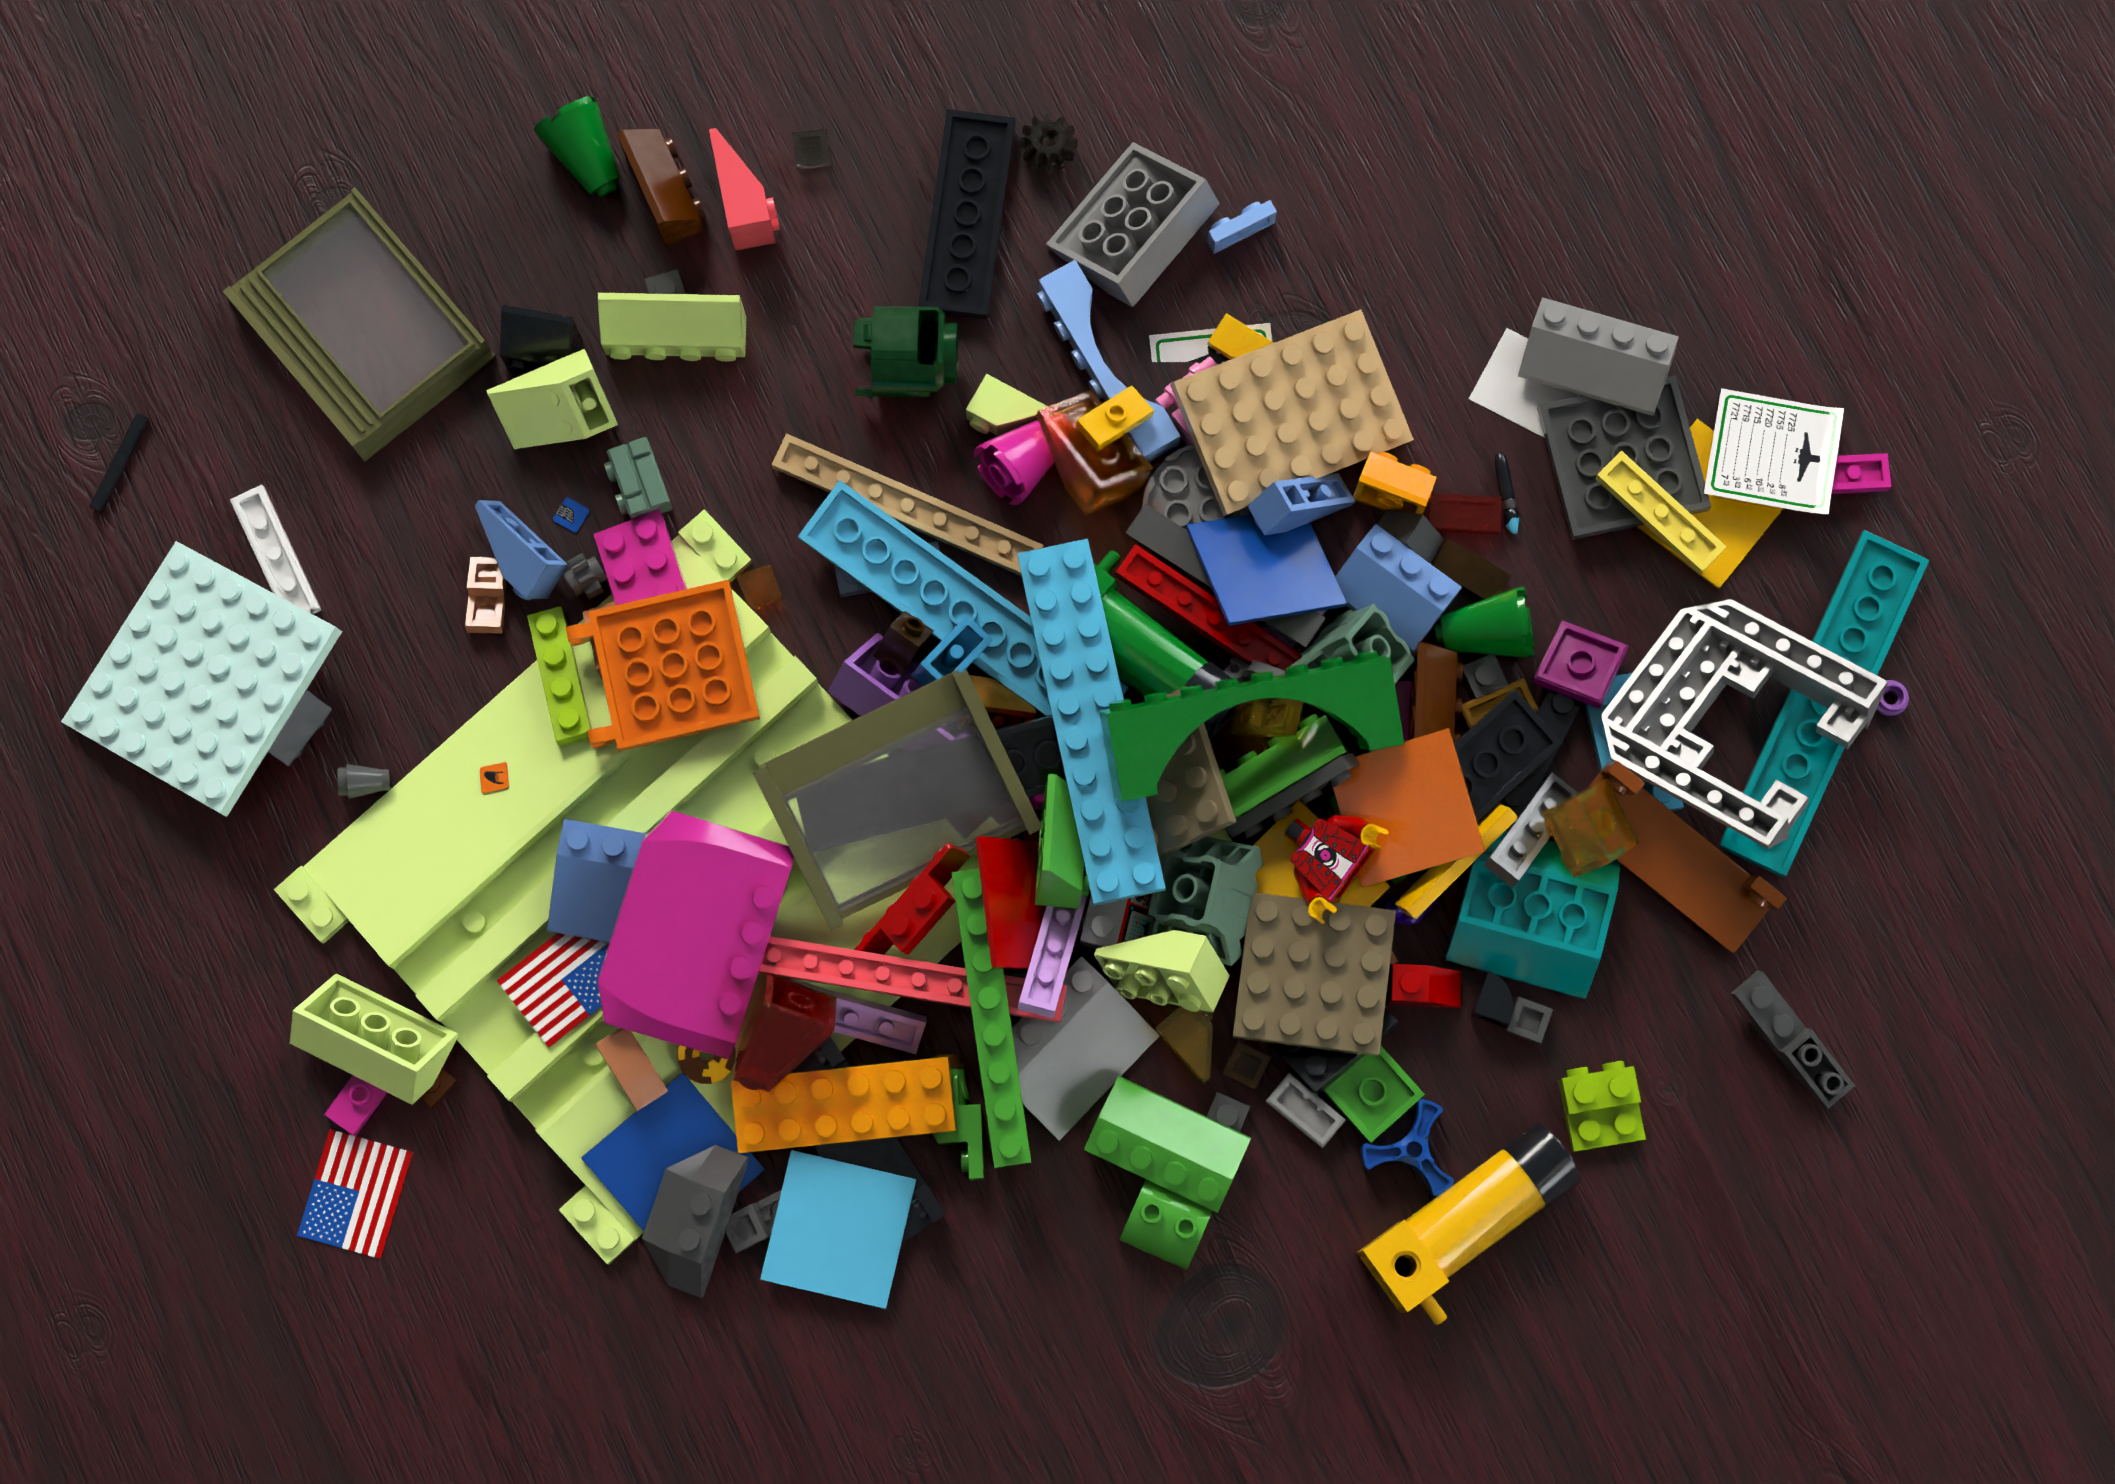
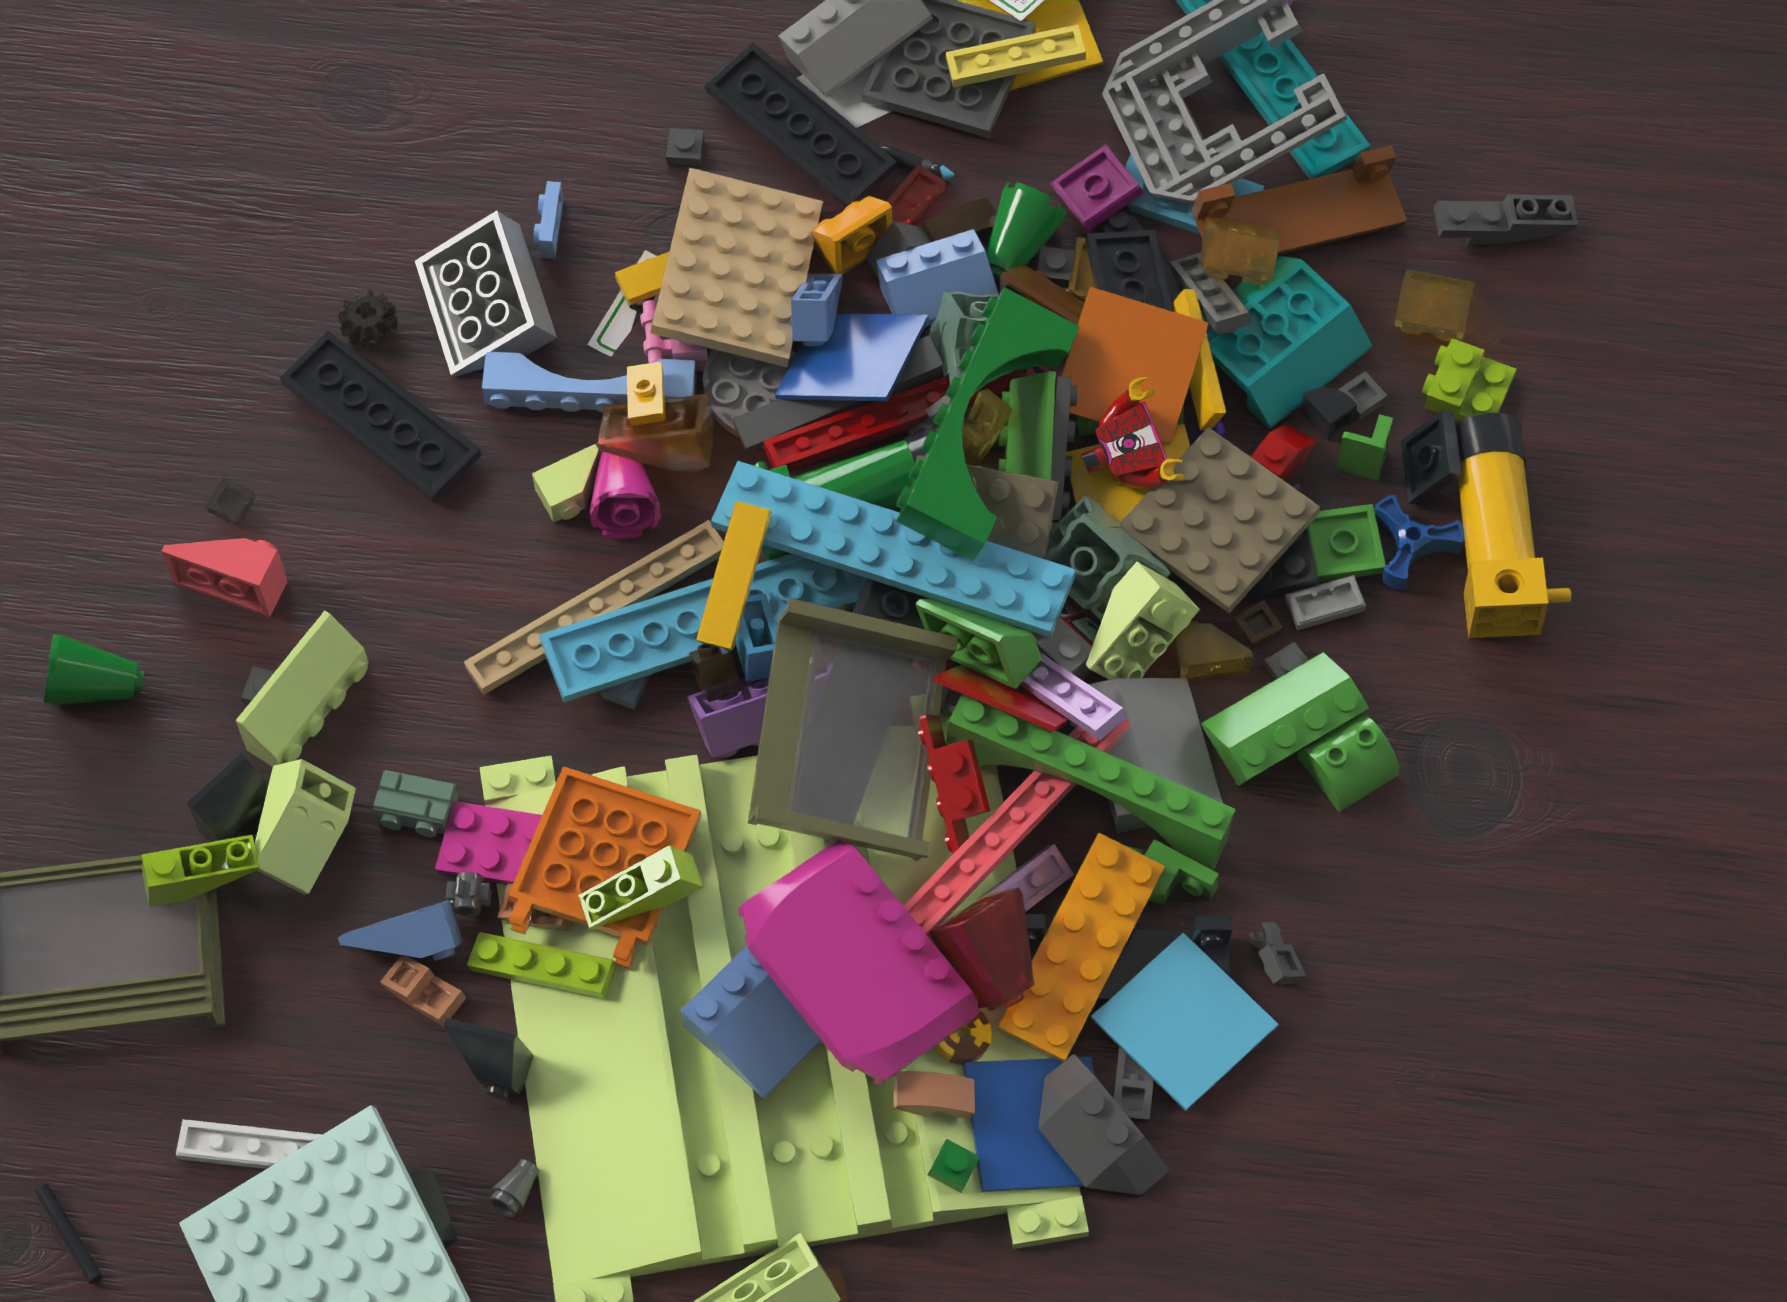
camera: 55 degrees left, 15 degrees down
(452, 689) = (494, 1056): none -> black slope
(456, 351) = (196, 869): none -> lime slope
(494, 777) = (593, 1071): orange sticker -> none
(557, 984) = (818, 1114): sticker -> none
(571, 514) = (402, 882): blue sticker -> none
(584, 1122) = (953, 1165): none -> green plate
(653, 716) = (642, 887): none -> lime slope
(662, 184) = (171, 634): reddish brown slope -> none
(759, 587) = (581, 759): clear orange plate -> none
(909, 351) = (468, 518): dark green piece -> none
(944, 1274) = (1278, 958): none -> dark grey plate
(979, 605) = (734, 575): none -> yellow tile
(1391, 289) = (685, 147): none -> dark grey plate
(1466, 1069) = (1366, 455): none -> bright green panel
(1474, 373) = (800, 126): none -> black plate
(1499, 1120) = (1431, 457): none -> black plate
(1662, 1028) = (1434, 305): none -> clear yellow slope

